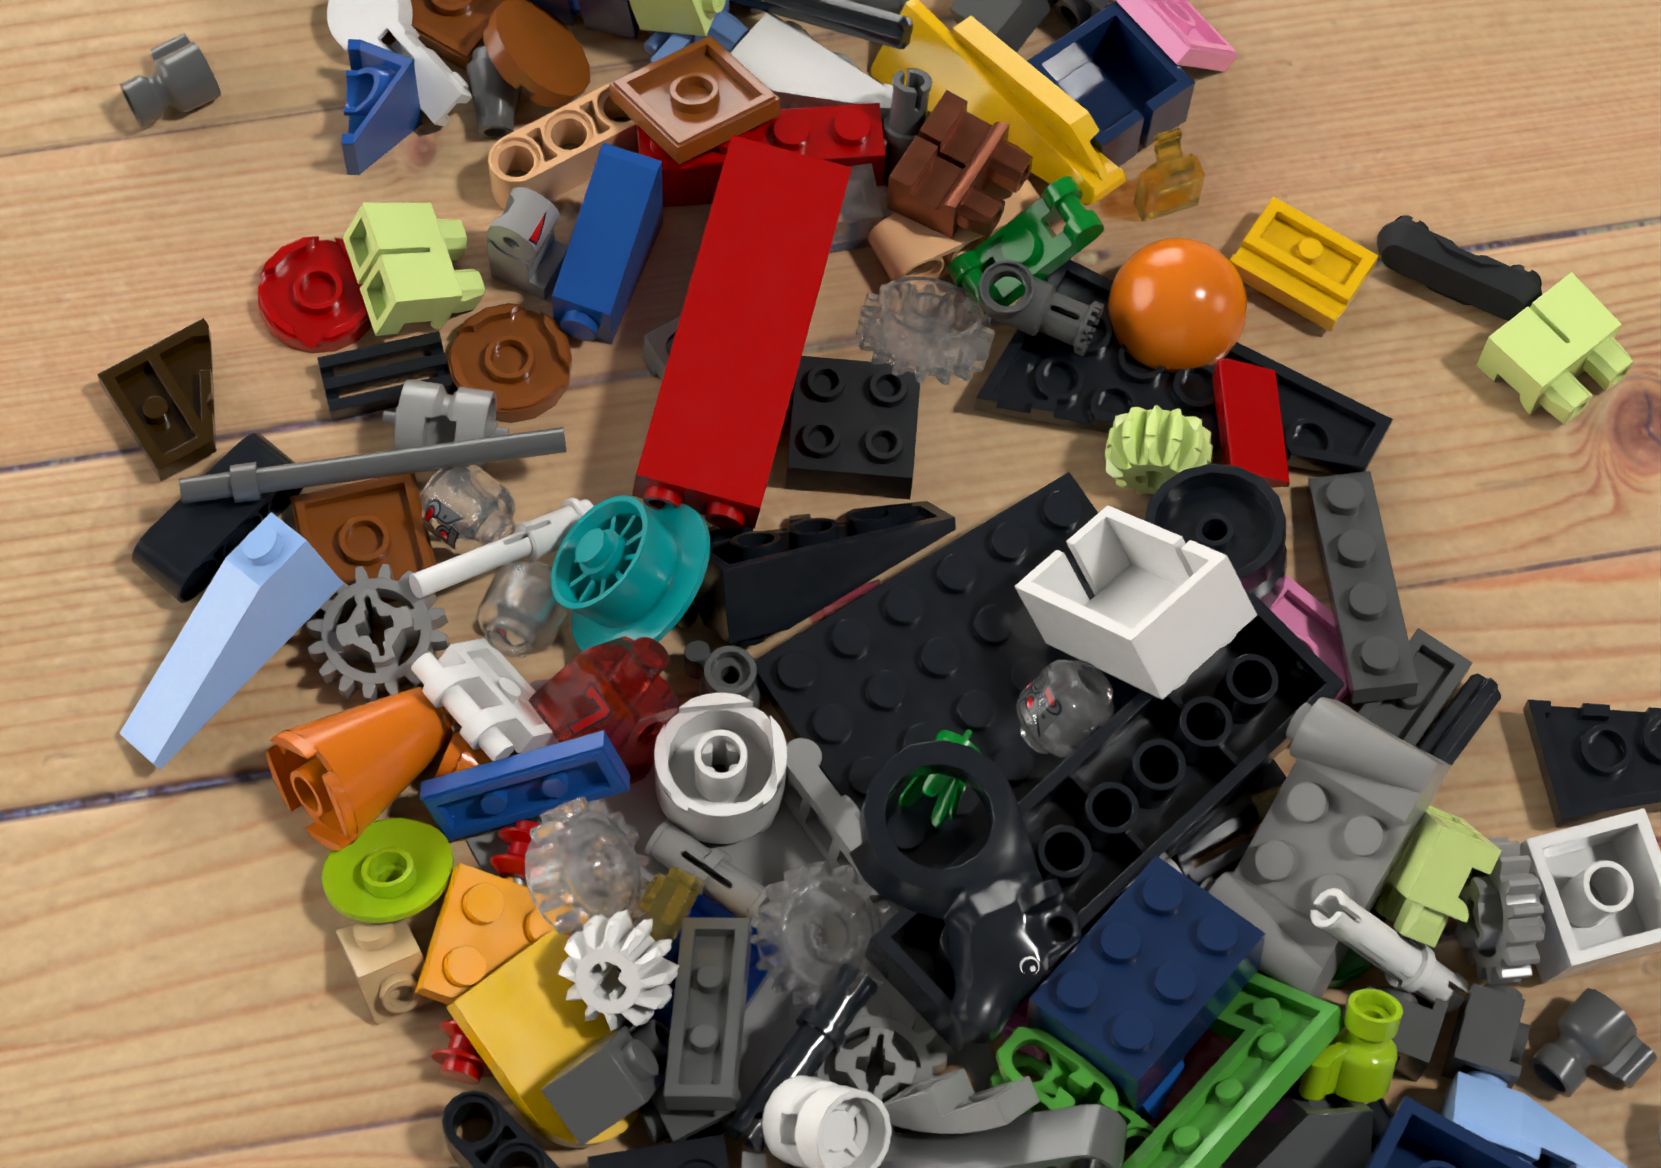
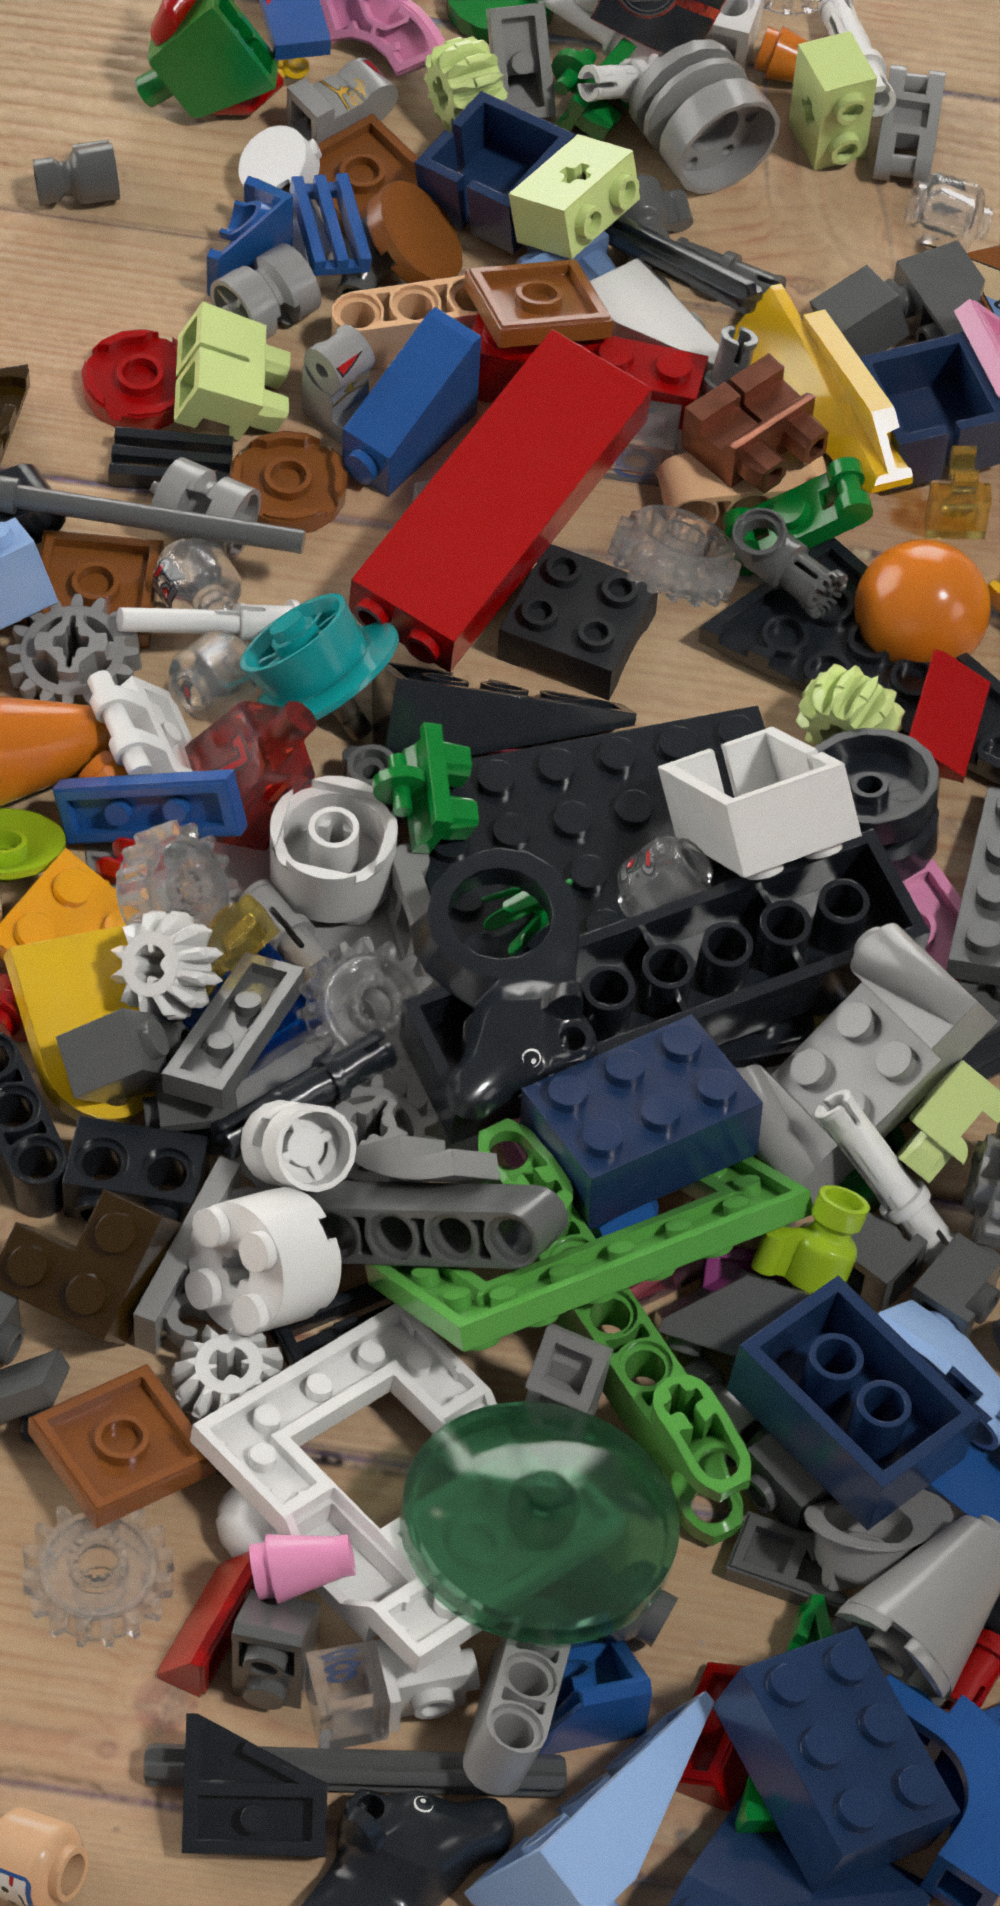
camera: 20 degrees right, 10 degrees down
(418, 159) = (276, 290): none -> light grey wheel
(431, 33) = (324, 192): none -> blue tile
(793, 683) = (419, 789): none -> green hips

